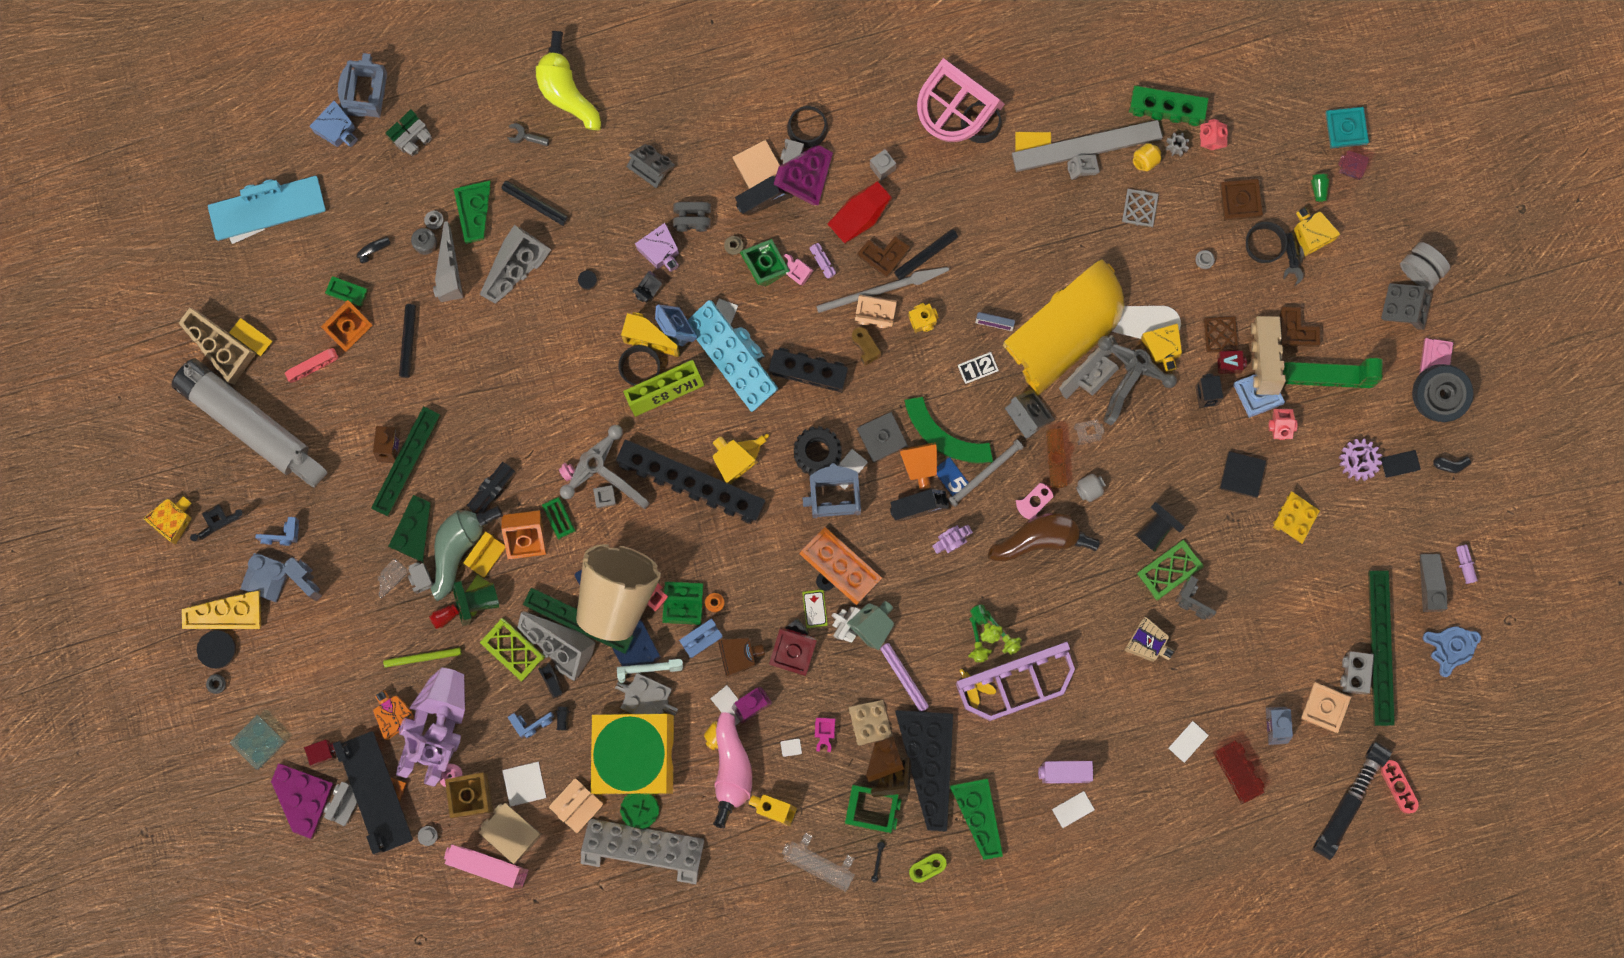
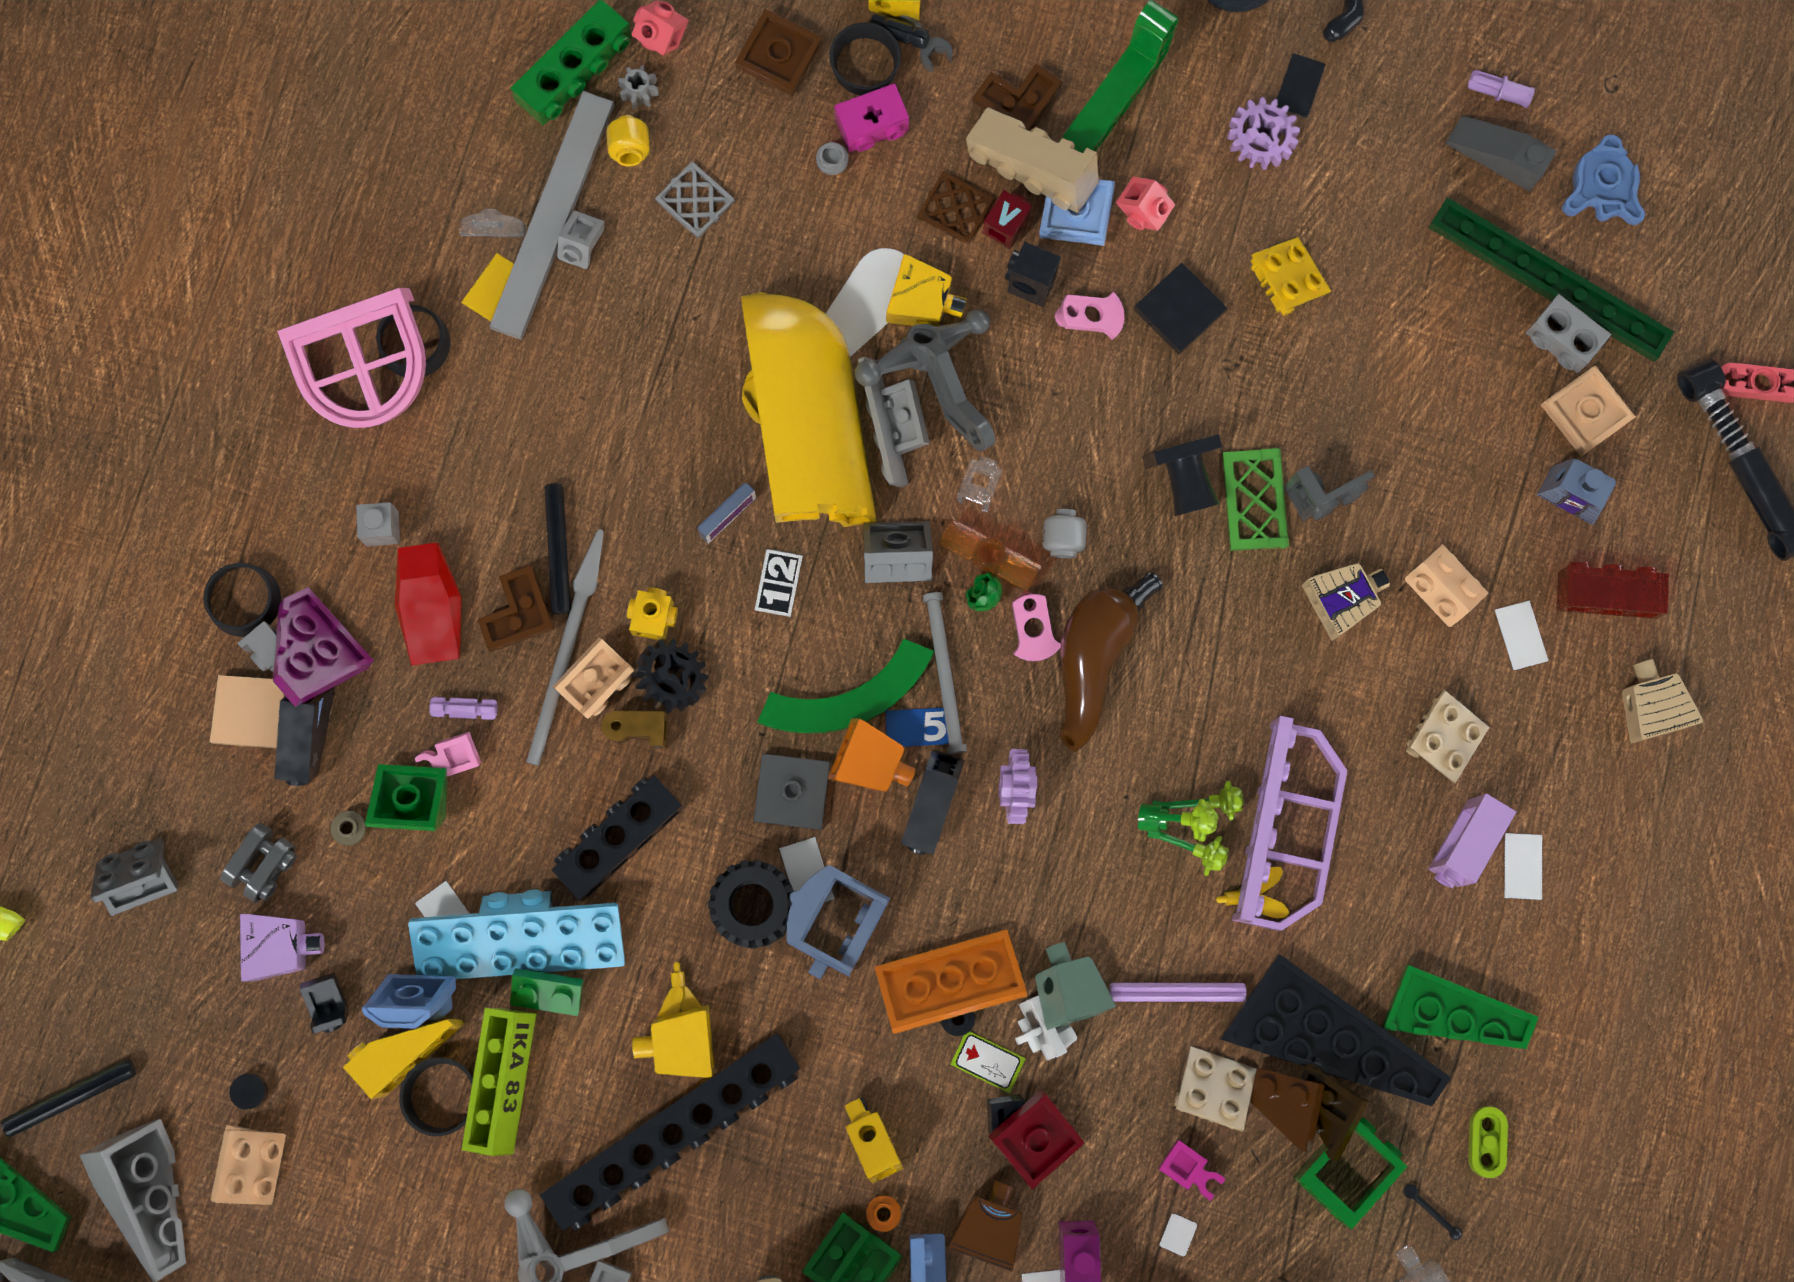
camera: 65 degrees left, 0 degrees up
(555, 302) = (248, 1166): none -> light nougat bracket
(717, 384) = (546, 992): none -> green plate
(739, 581) = (879, 1155): none -> yellow torso
(900, 345) = (670, 677): none -> black gear
(1036, 468) = (984, 593): none -> green plate
(1062, 120) = (492, 223): none -> clear plate
(1112, 733) = (1447, 736): none -> tan hinge
(1188, 688) = (1446, 586): none -> light nougat bracket
(1196, 827) = (1657, 704): none -> tan torso
(1218, 441) = (1109, 308): none -> bright pink piece
(1234, 256) = (883, 106): none -> dark pink brick

